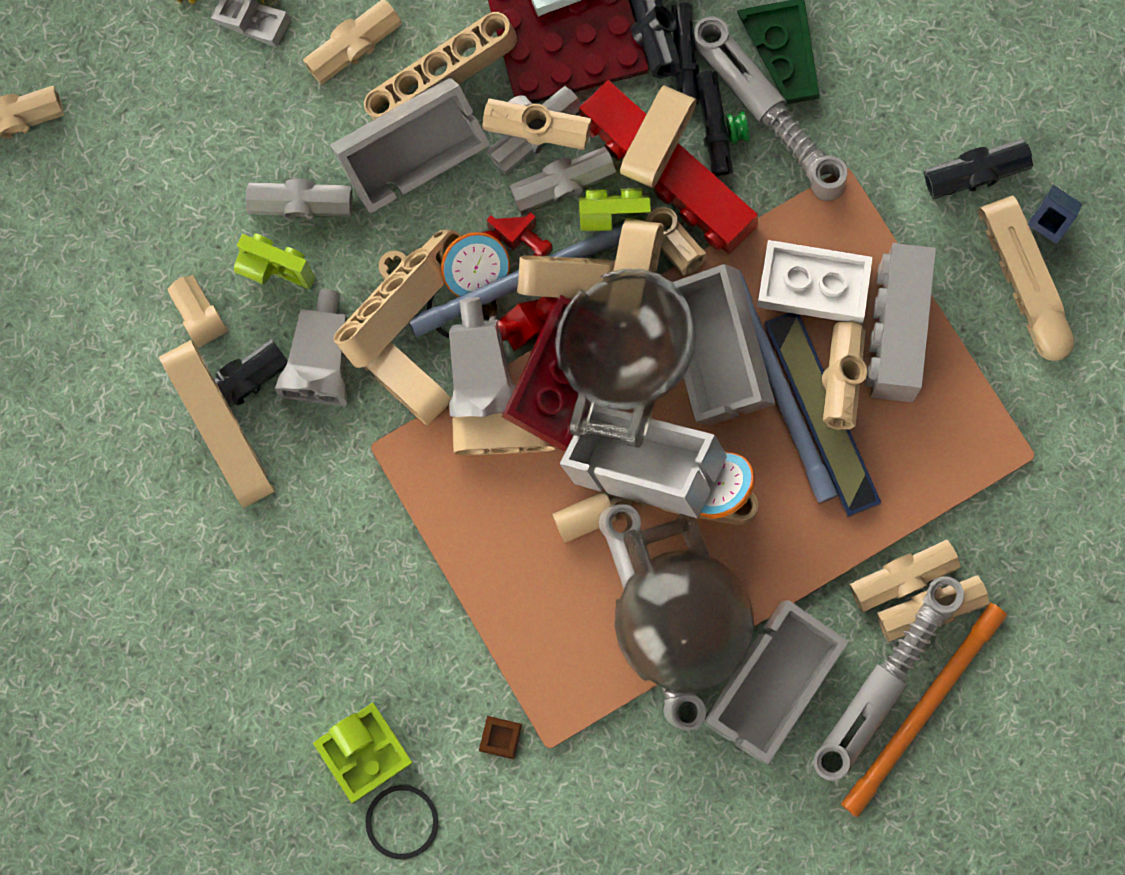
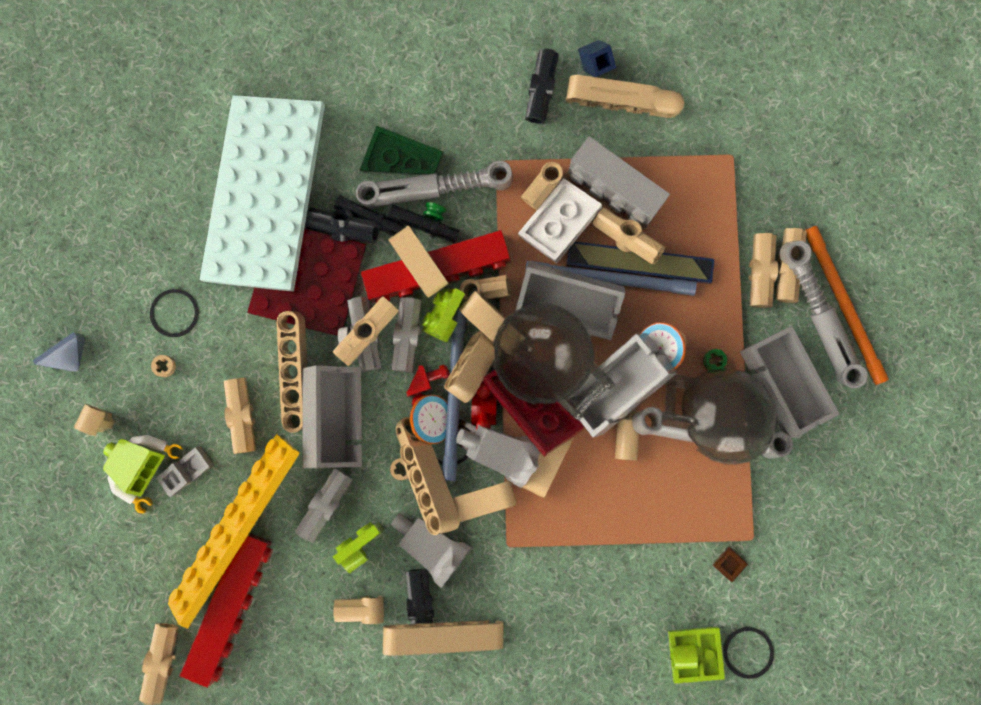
camera: 70 degrees left, 5 degrees up
(115, 156) = (224, 612): none -> red brick
(214, 108) = (232, 530): none -> yellow plate
(761, 573) = (716, 352): none -> green bush
(844, 236) = (541, 186): none -> tan piece

